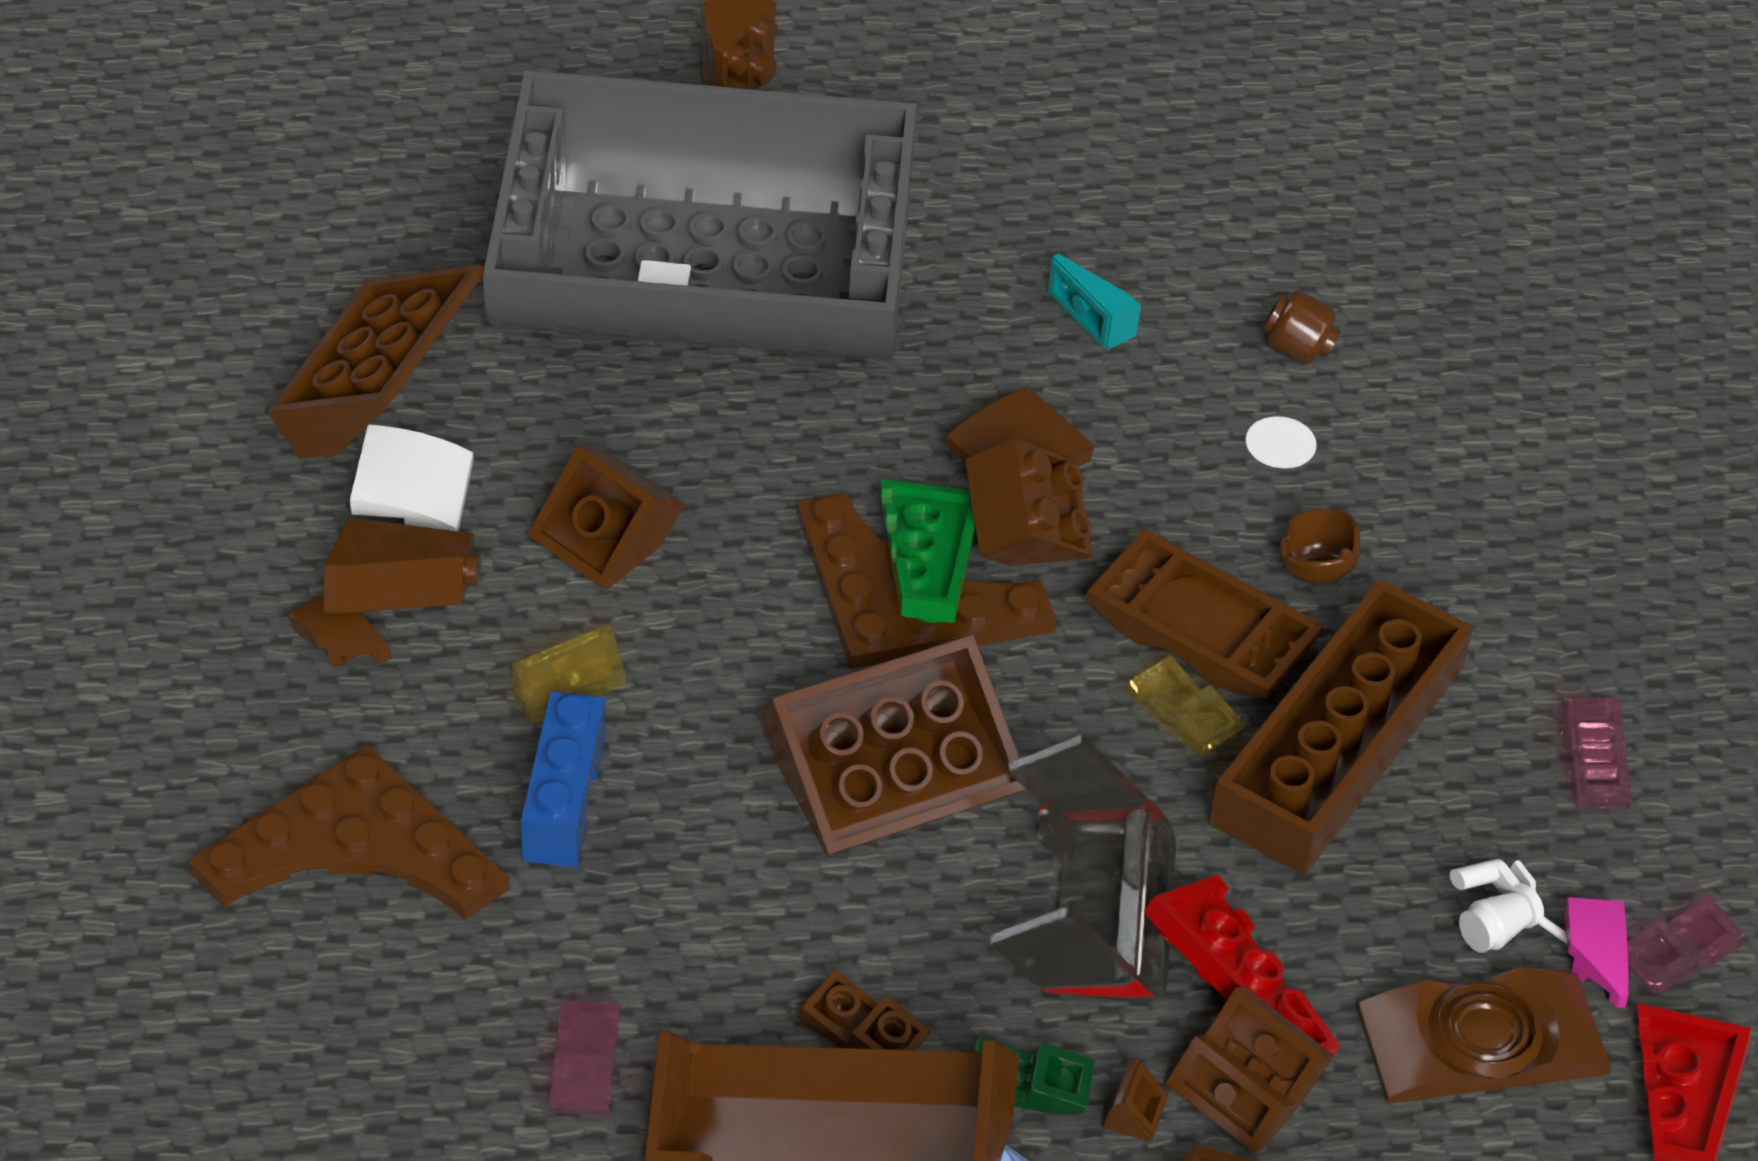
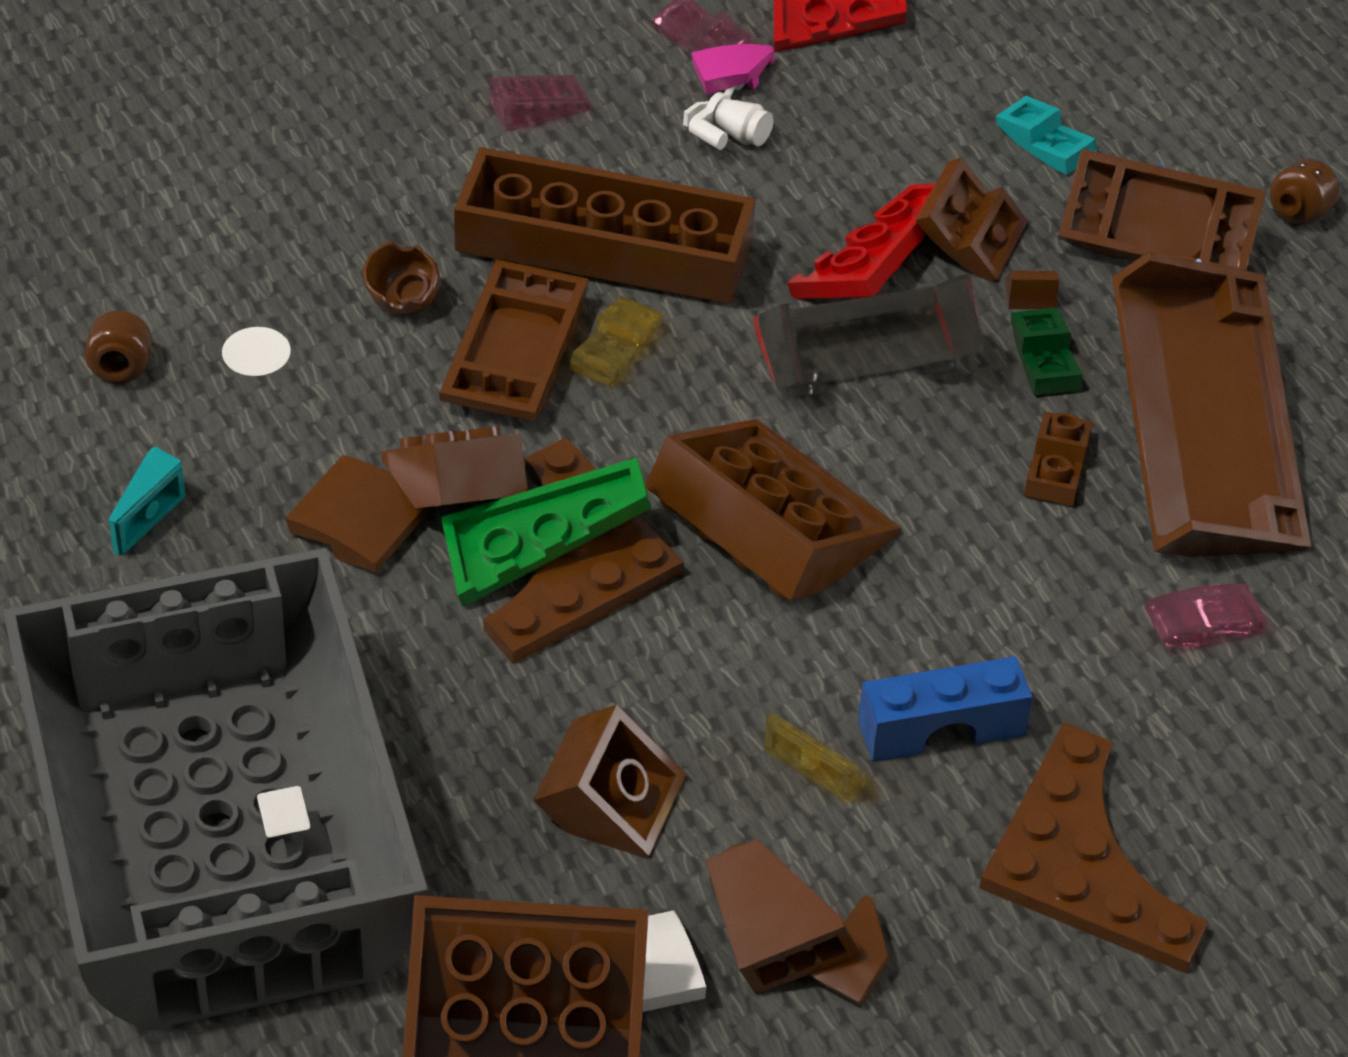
camera: 110 degrees left, 0 degrees up
(1482, 1034) = (850, 121): reddish brown slope -> none

